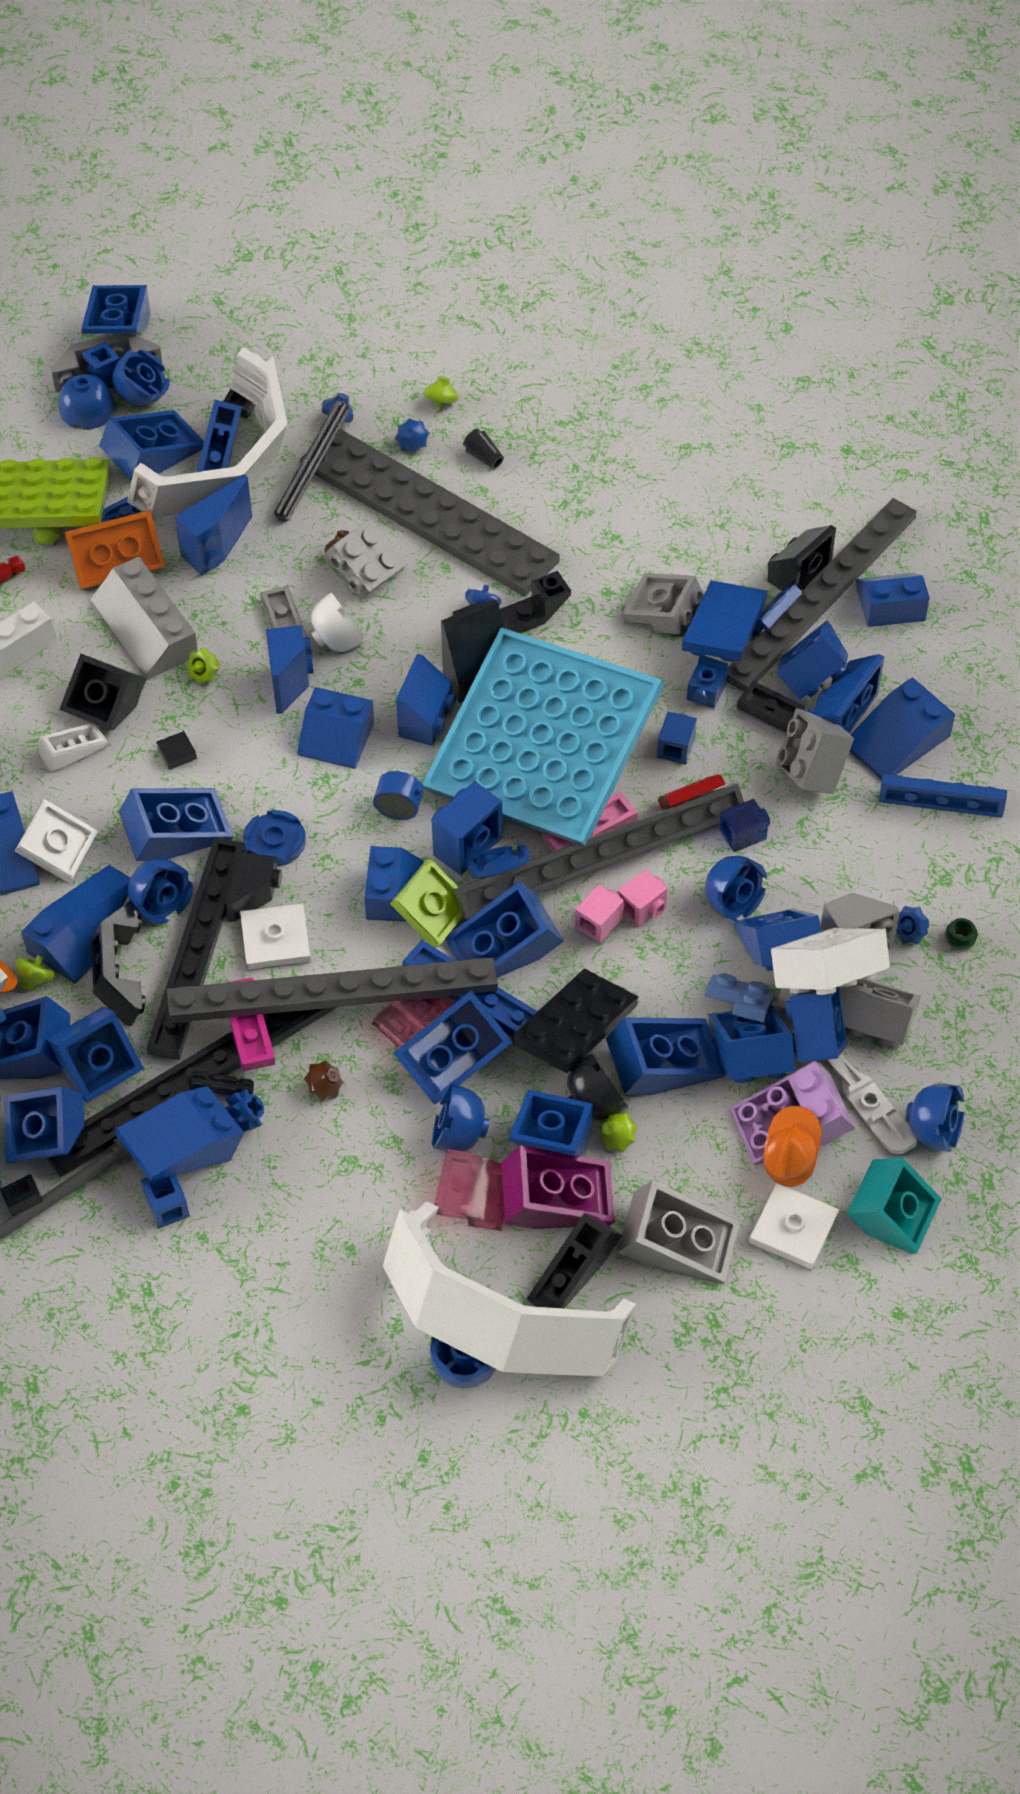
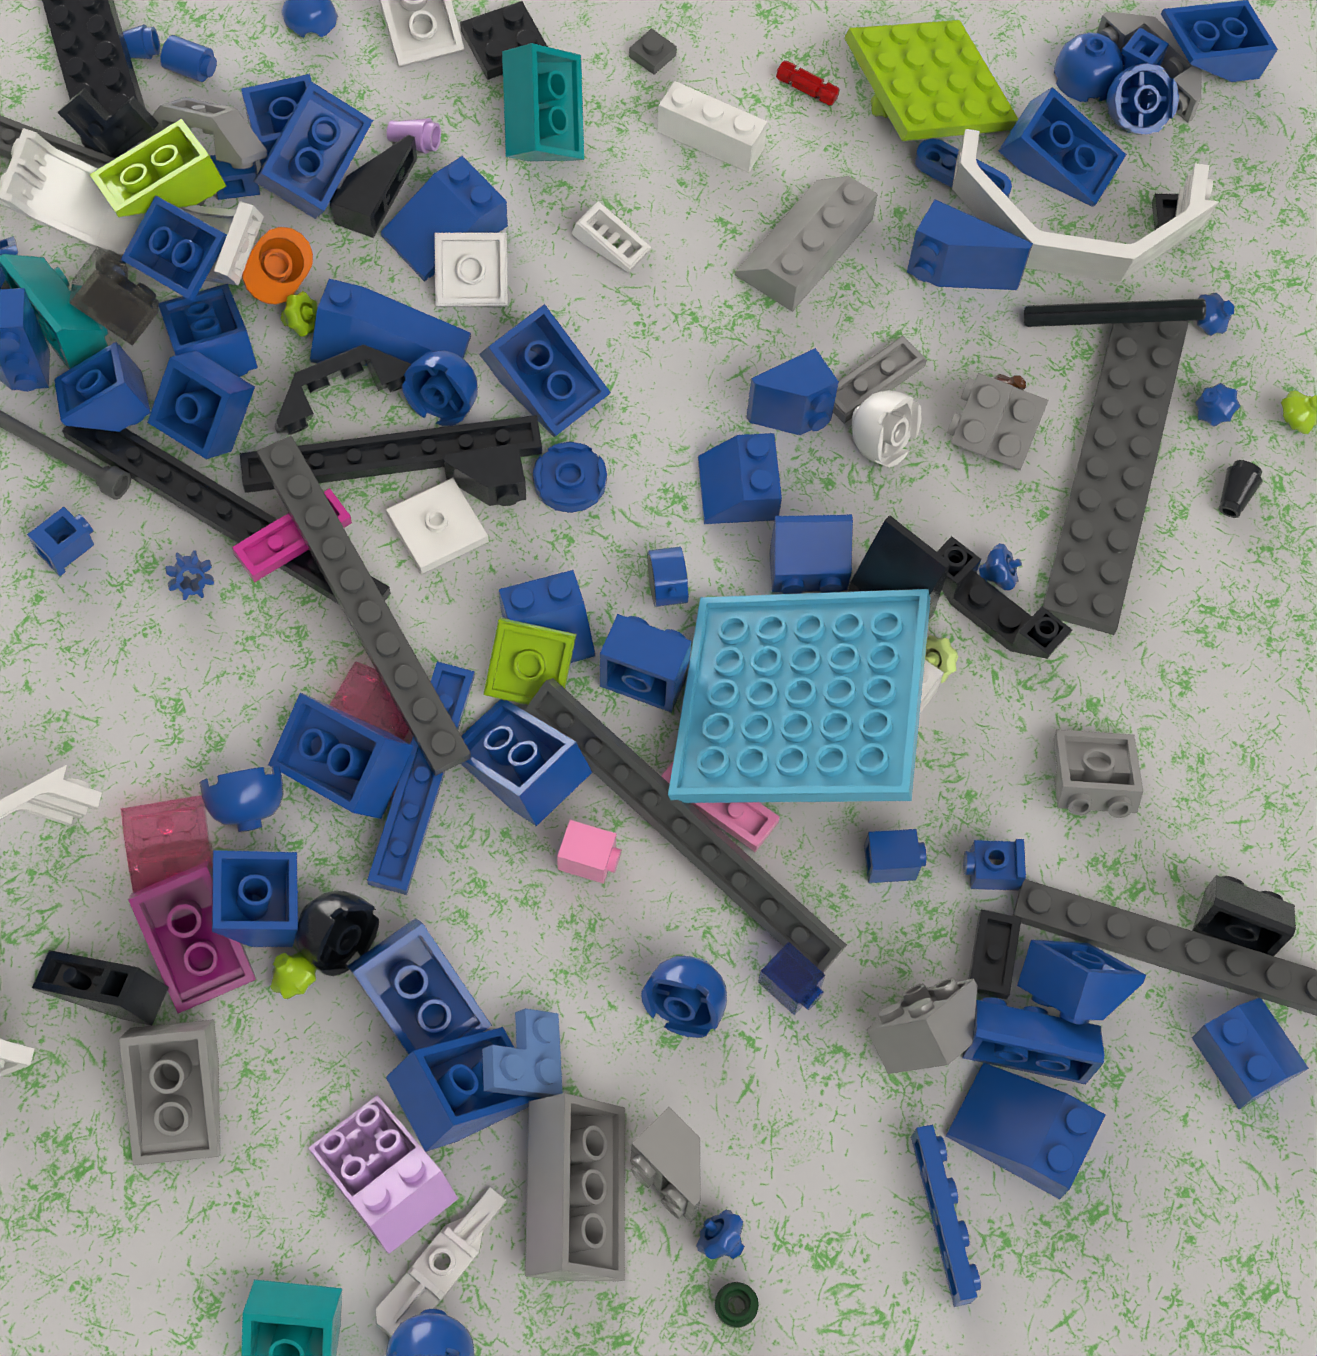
camera: 65 degrees right, 10 degrees up
(21, 1195) = (28, 410): black tile -> none
(101, 692) = (687, 235): black slope -> none
(112, 543) = (888, 166): orange plate -> none
(176, 750) = (647, 337): black tile -> none
(181, 1135) = (124, 521): blue slope -> none
(202, 665) = (770, 318): lime piece -> none
(220, 436) = (1097, 211): blue slope -> none
(220, 1083) = (216, 541): black axle -> none
(323, 1080) = (260, 640): reddish brown piece -> none
(498, 861) = (616, 715): blue tile -> none
(575, 1020) = (421, 875): black plate -> none
(643, 897) = (634, 895): bright pink brick -> none
(690, 791) = (816, 899): red tile -> none
(724, 621) = (1094, 851): blue tile -> none
(773, 930) = (623, 1070): blue slope -> none
(776, 608) = (1150, 909): tile -> none
(792, 1146) = (324, 1181): orange piece -> none
(794, 1226) = (232, 1223): white plate -> none
(817, 1025) = (499, 1155): blue brick -> none
(830, 960) = (563, 1136): white brick -> none

